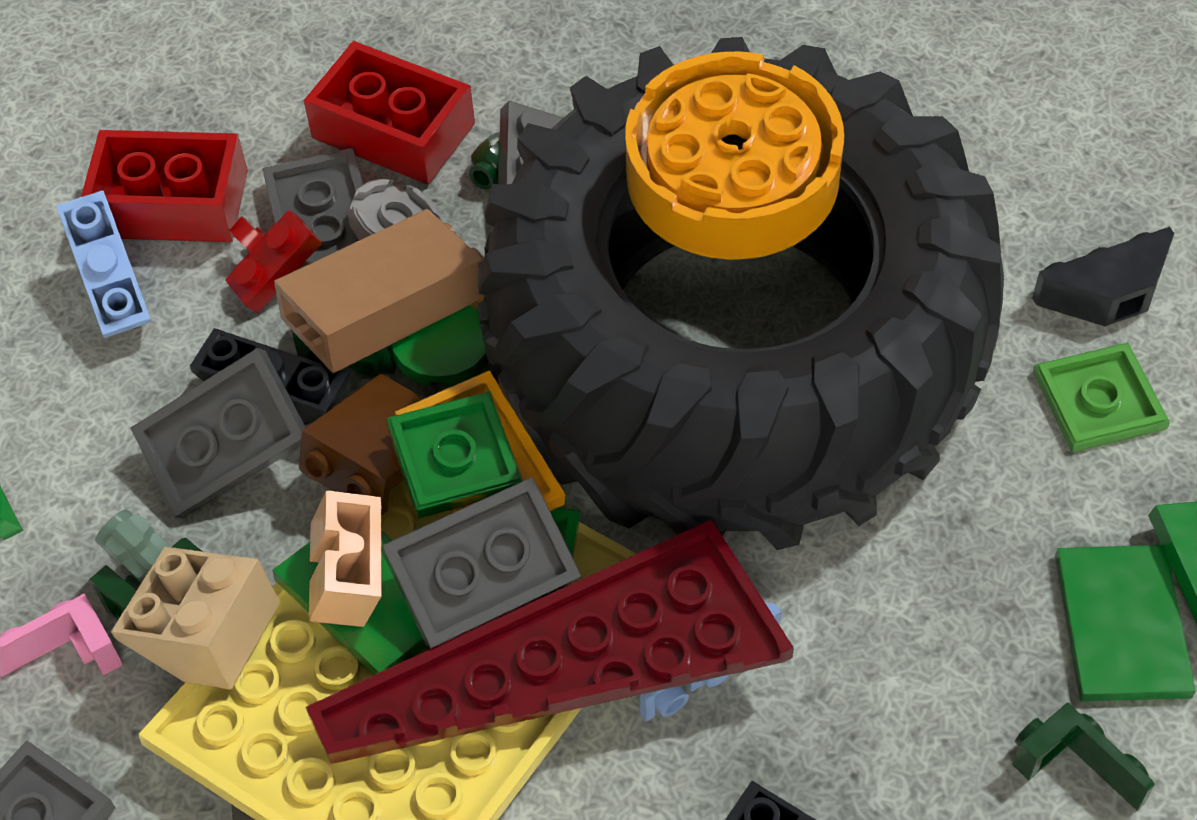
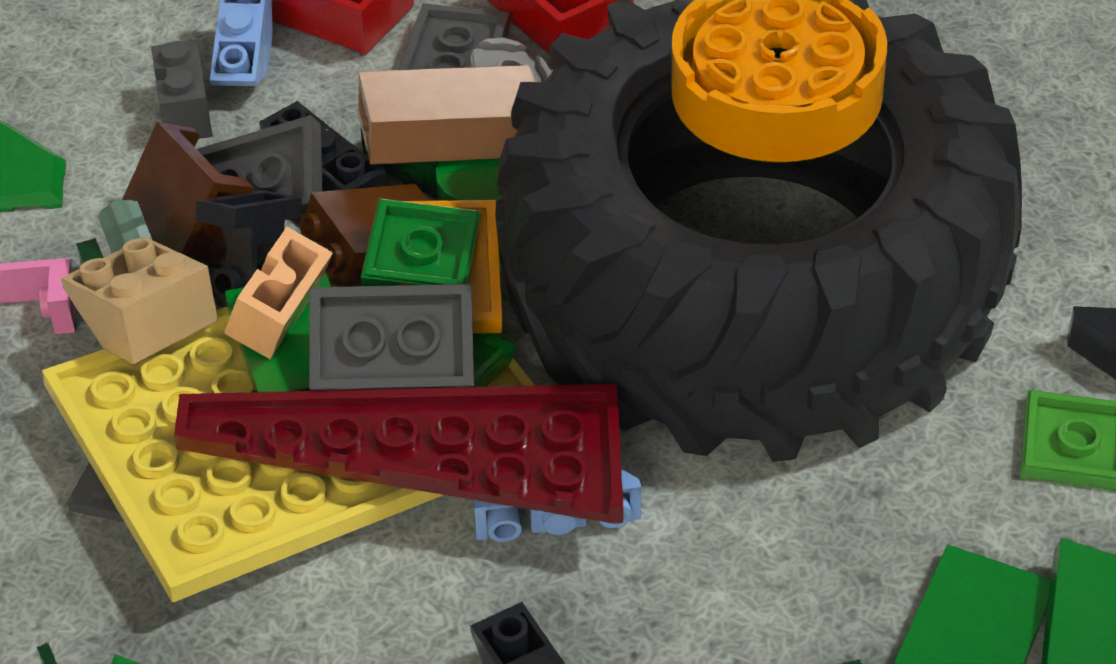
camera: 25 degrees right, 10 degrees down
(78, 356) = (181, 86): none -> dark grey brick
(164, 479) = (169, 184): none -> reddish brown panel
(264, 490) = (251, 228): none -> black tile
(270, 257) = (399, 55): red plate -> none

